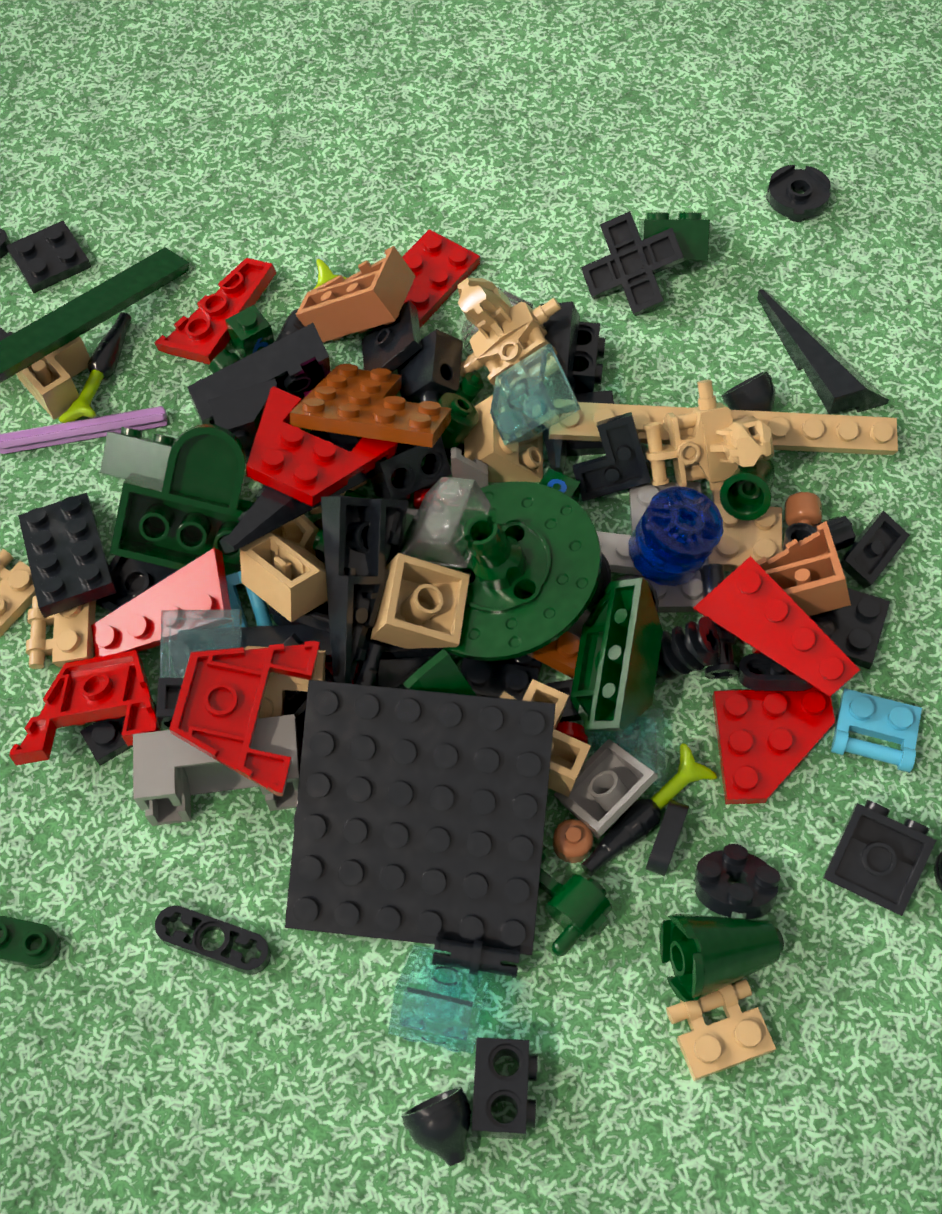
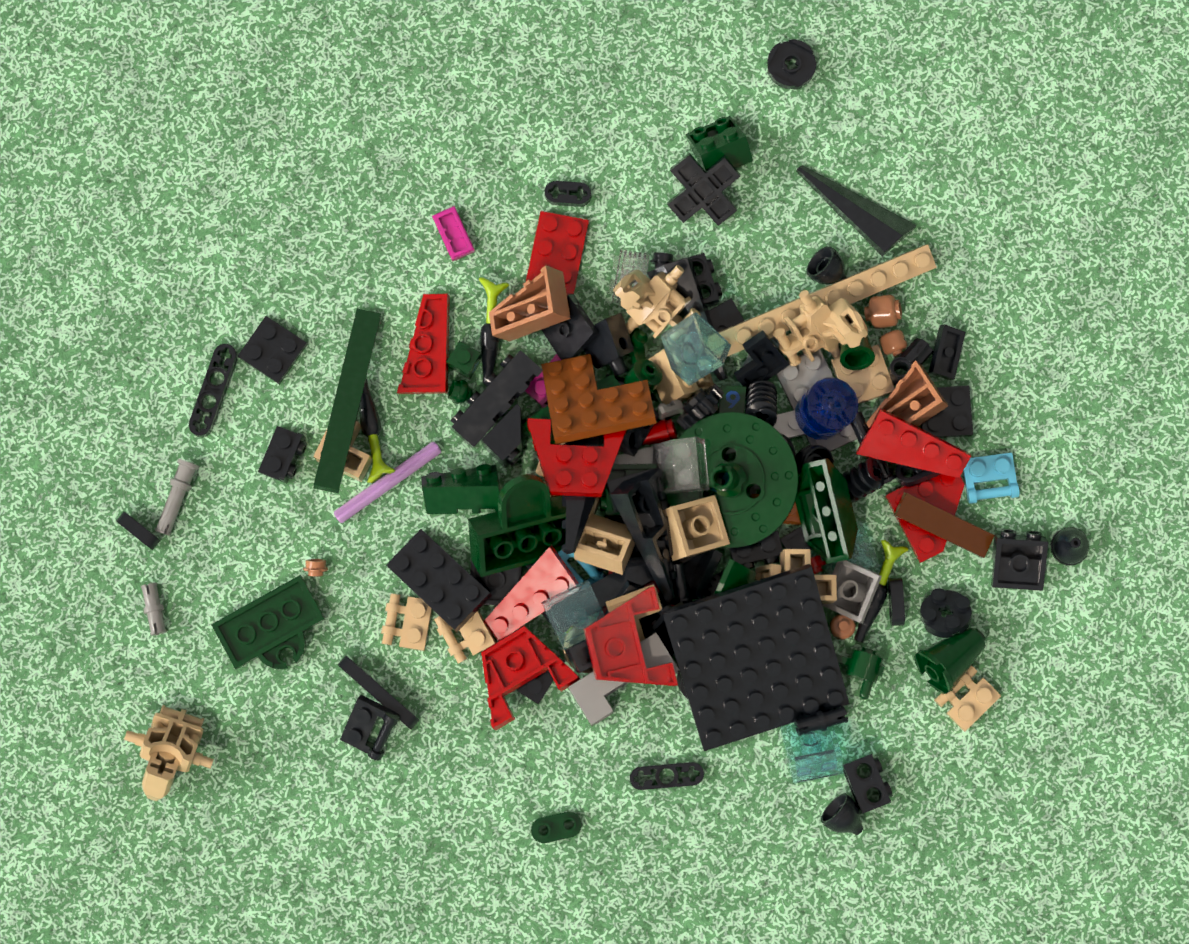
camera: 25 degrees left, 20 degrees up
(317, 218) = (453, 233): none -> dark pink plate
(470, 225) = (567, 187): none -> black beam
(511, 468) = (700, 406): none -> black gear
(603, 502) = (762, 401): none -> black piece
(783, 759) = (944, 525): none -> reddish brown tile
(805, 471) = (883, 311): none -> nougat head

